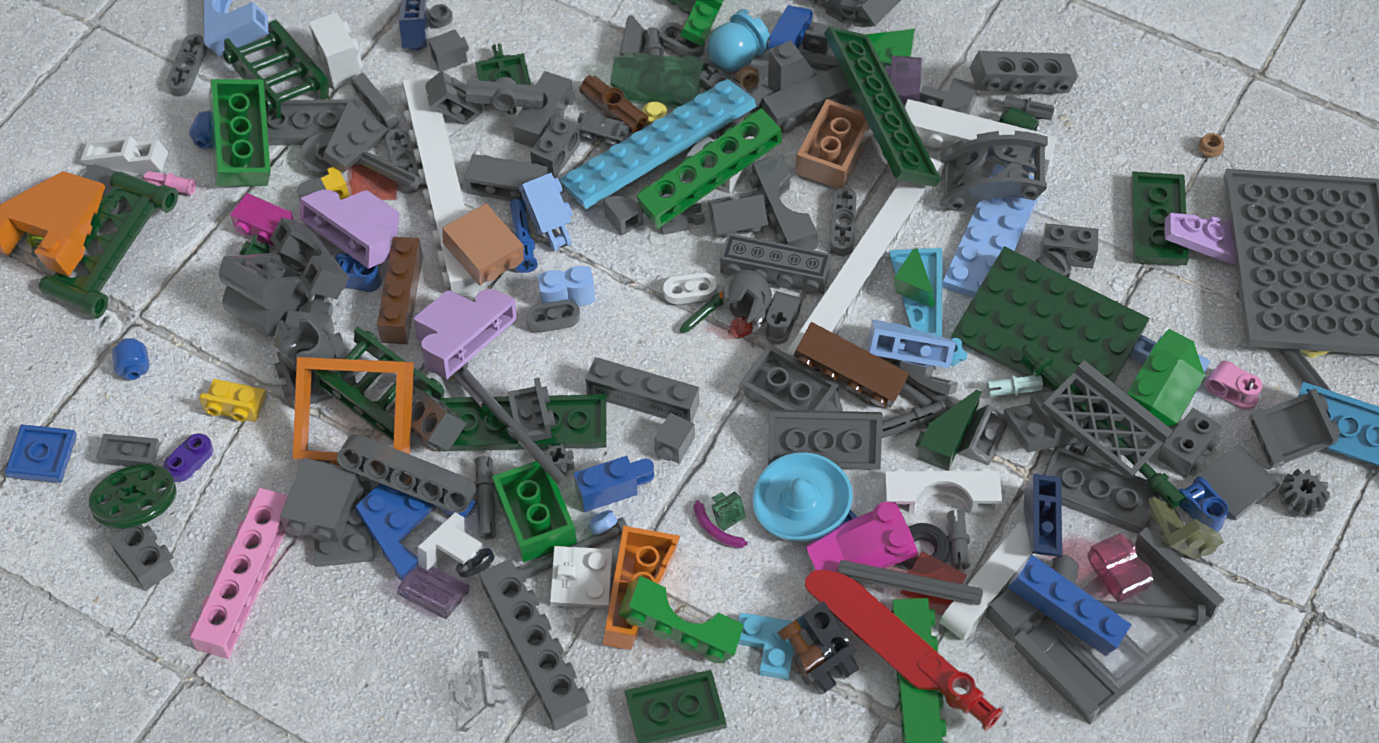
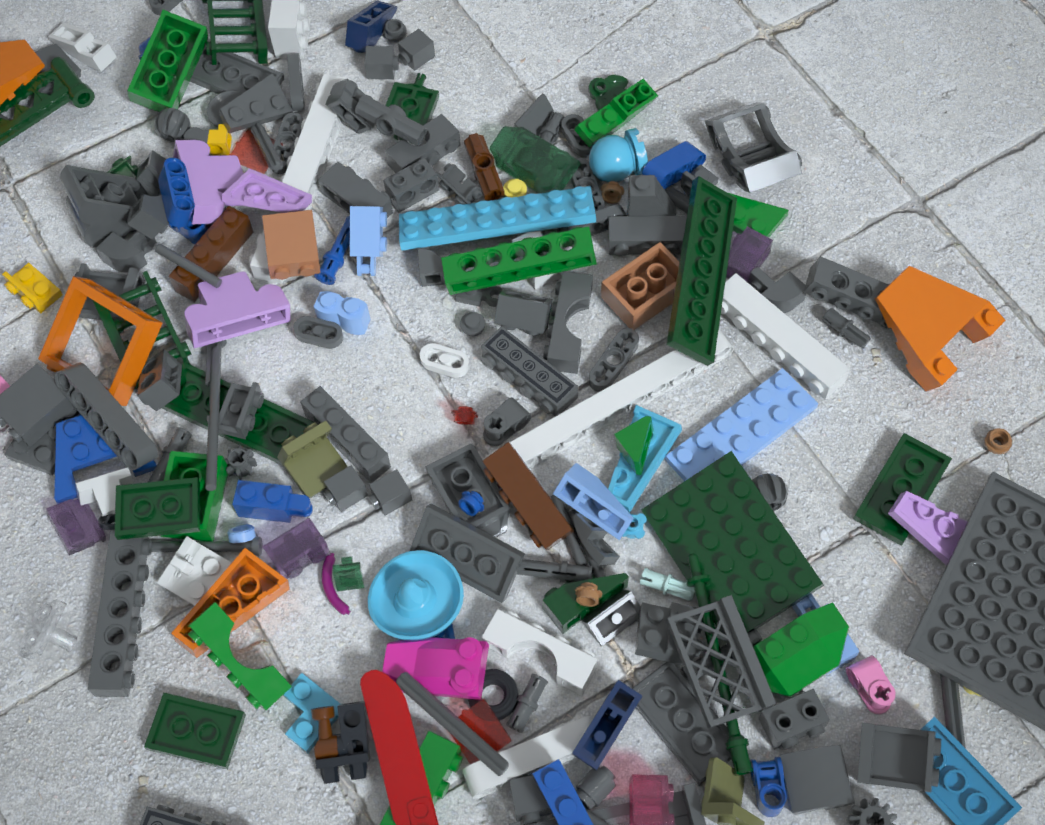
camera: 30 degrees right, 5 degrees up
(182, 185) = (101, 83): bright pink axle -> none
(258, 217) = (142, 139): dark pink brick -> none
(278, 188) = (172, 124): none -> dark grey piece
(302, 342) = (100, 266): dark grey helmet -> none
(339, 243) = (176, 192): none -> blue beam
(394, 305) = (188, 265): none -> dark grey bar
(425, 209) = (266, 193): none -> lavender wing
(476, 24) = (416, 49): none -> dark grey brick
(519, 528) = (157, 508): none -> dark green plate
(628, 426) = (311, 458): none -> olive bracket
(666, 507) = (296, 549): none -> clear purple brick
(694, 246) = (472, 324): none -> dark grey plate
(702, 313) = (446, 386): dark green piece -> none
(718, 422) = (389, 493): none -> dark grey brick
(747, 295) = (484, 390): dark grey helmet -> none
(804, 393) = (471, 503): none -> blue plate
(959, 420) = (588, 594): none -> medium nougat plate
(968, 187) = (753, 351): dark grey fence -> none
(1019, 119) = (828, 337): dark green brick -> none
(1074, 242) = (801, 476): dark grey brick -> none
(1098, 67) = (927, 316): none -> orange wedge

